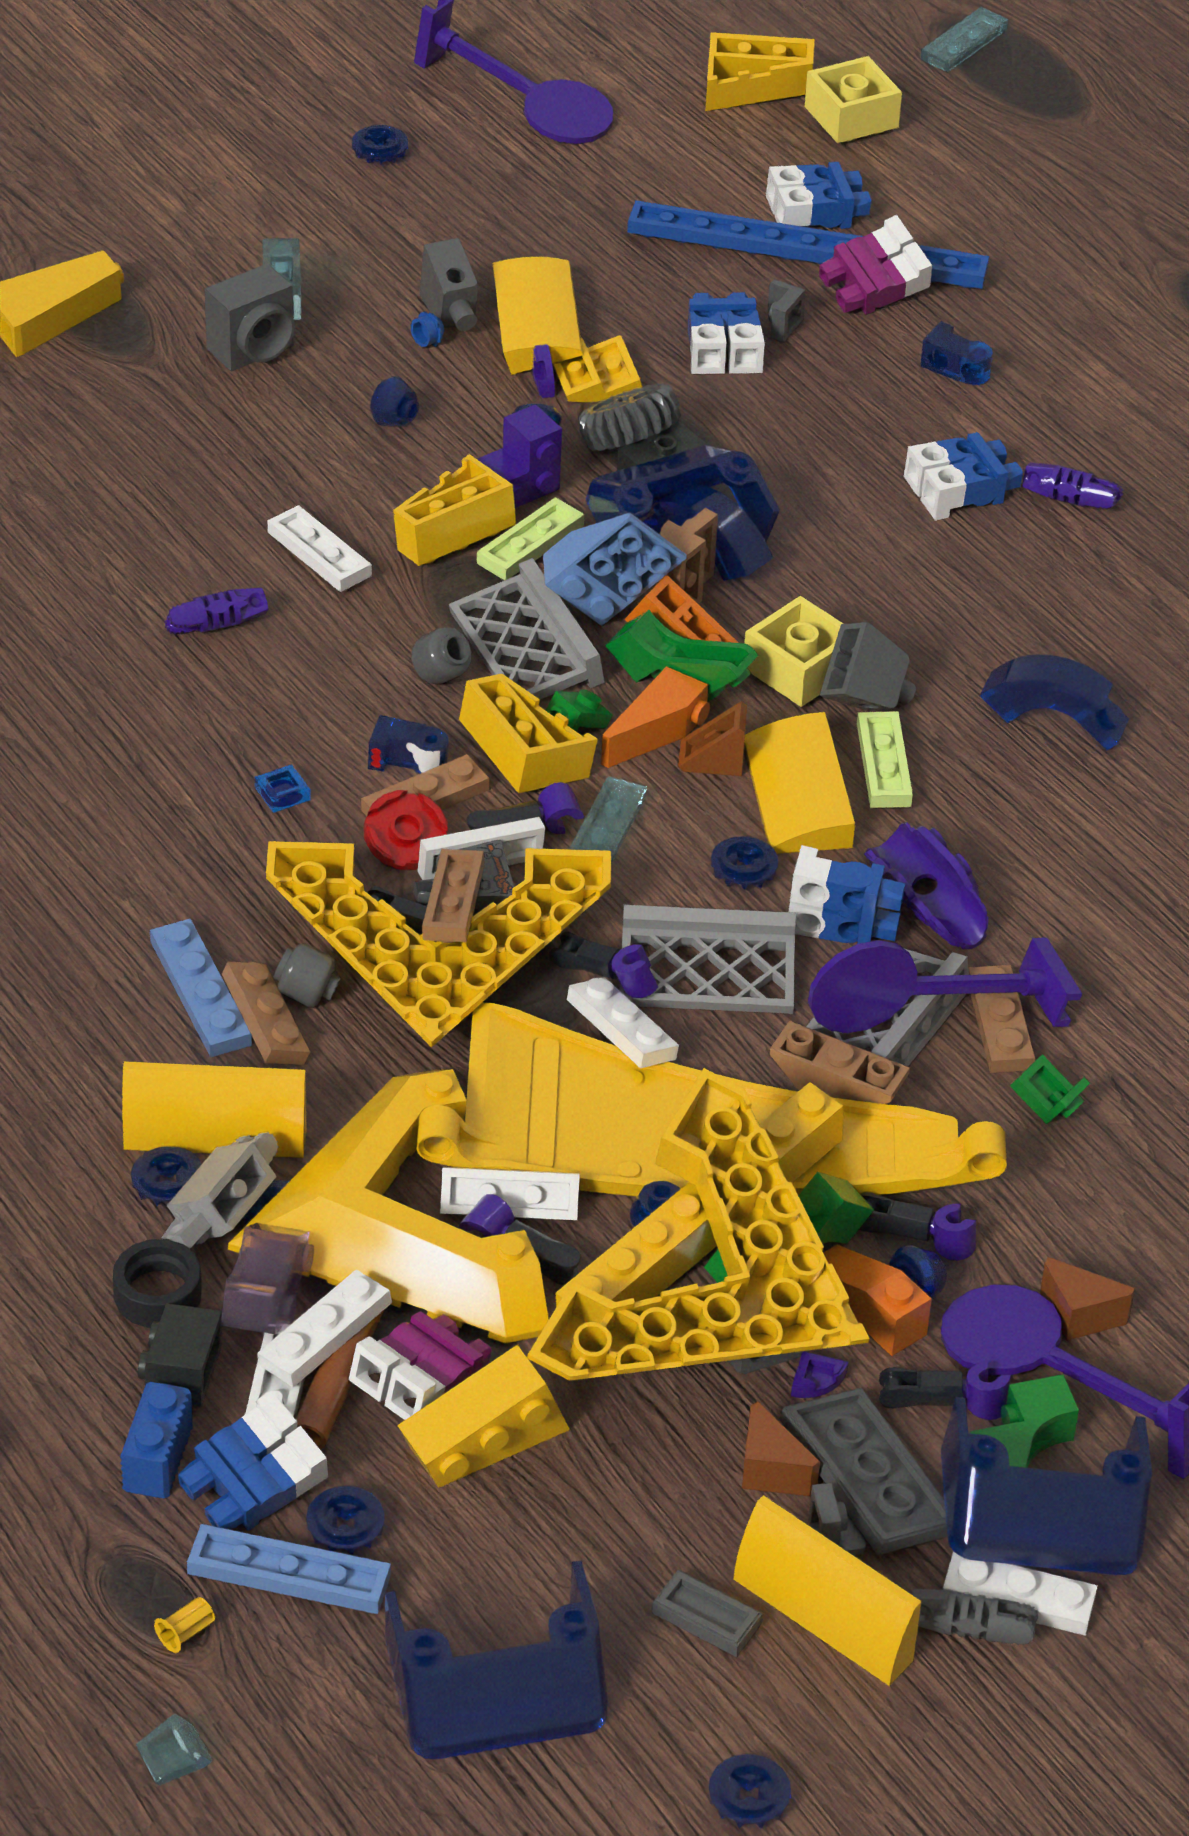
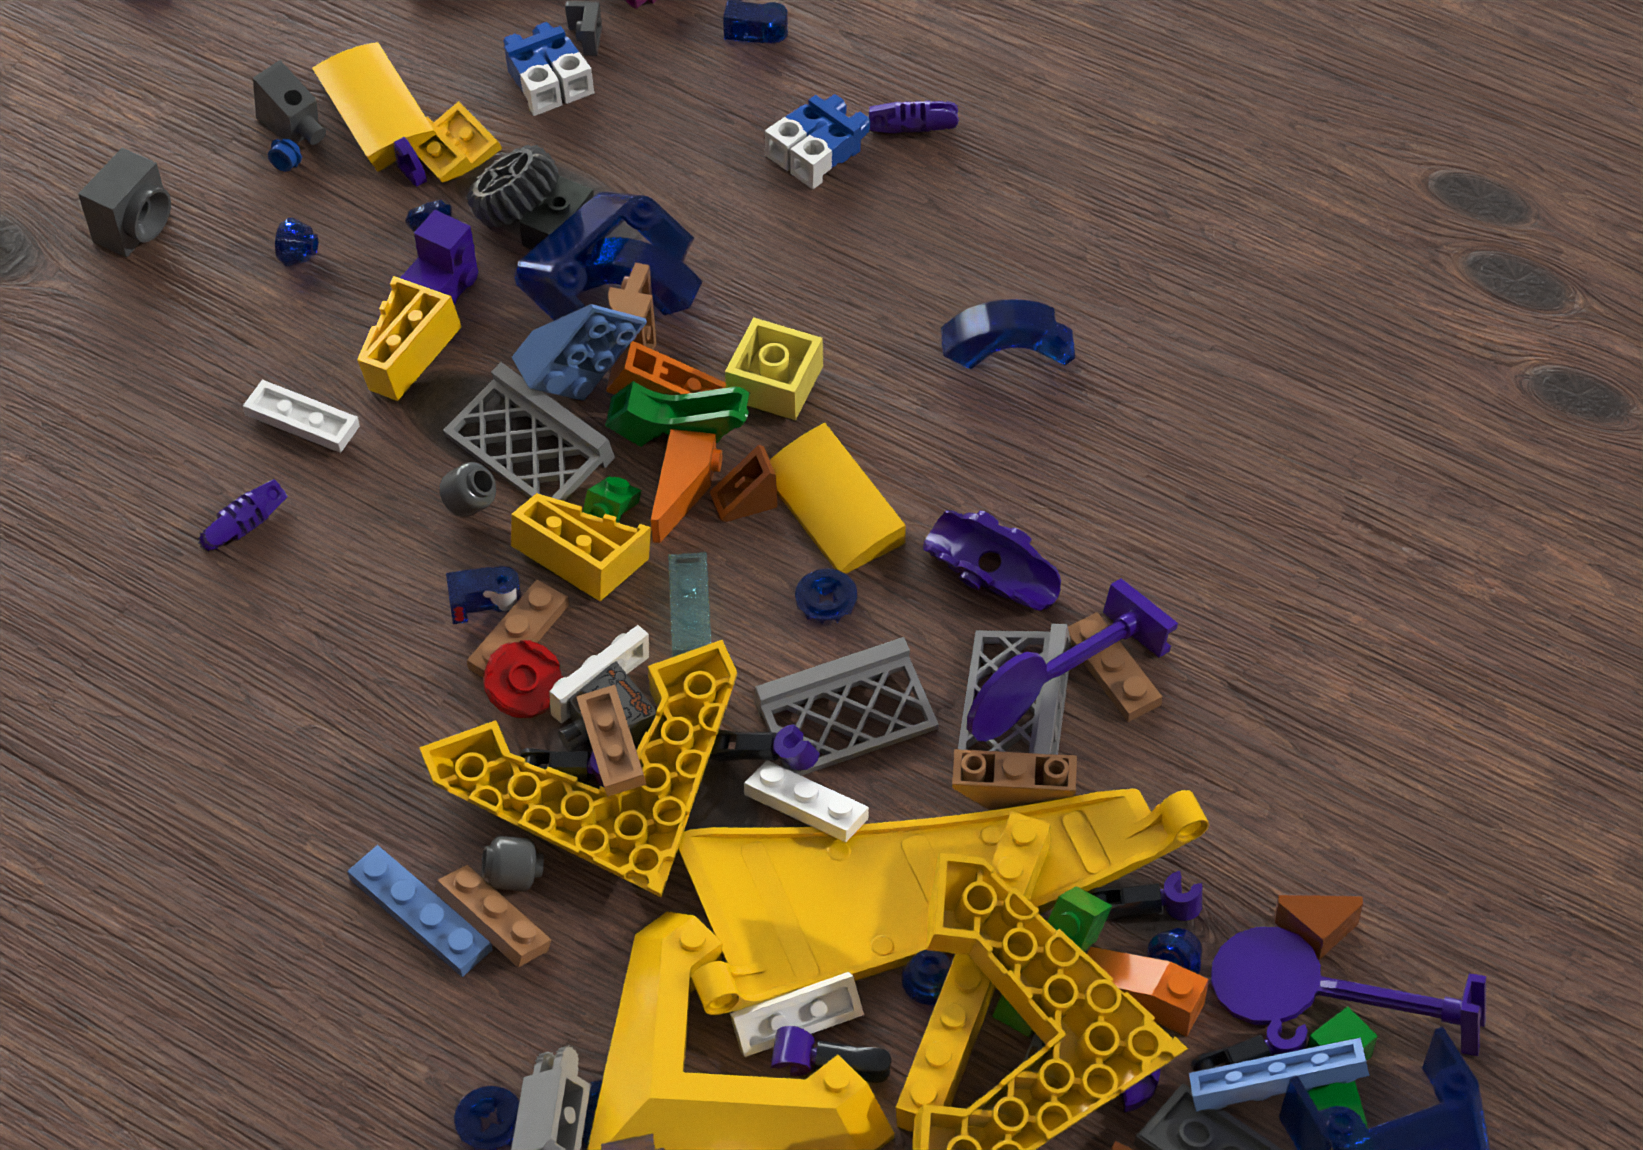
camera: 20 degrees left, 10 degrees up
(212, 1106) = (502, 1040): yellow slope -> none
(282, 788) = (389, 675): clear blue tile -> none
(284, 257) = (127, 131): clear light blue torso -> none
(529, 538) = (482, 337): yellowish green plate -> none
(552, 804) = (638, 606): piece -> none
(843, 900) = (936, 607): blue hips -> none
(867, 670) = (842, 368): dark grey torso -> none
(884, 759) = (893, 447): yellowish green plate -> none
(935, 1401) = (1270, 1075): none -> medium blue plate
(1048, 1090) = (1191, 725): green bracket -> none

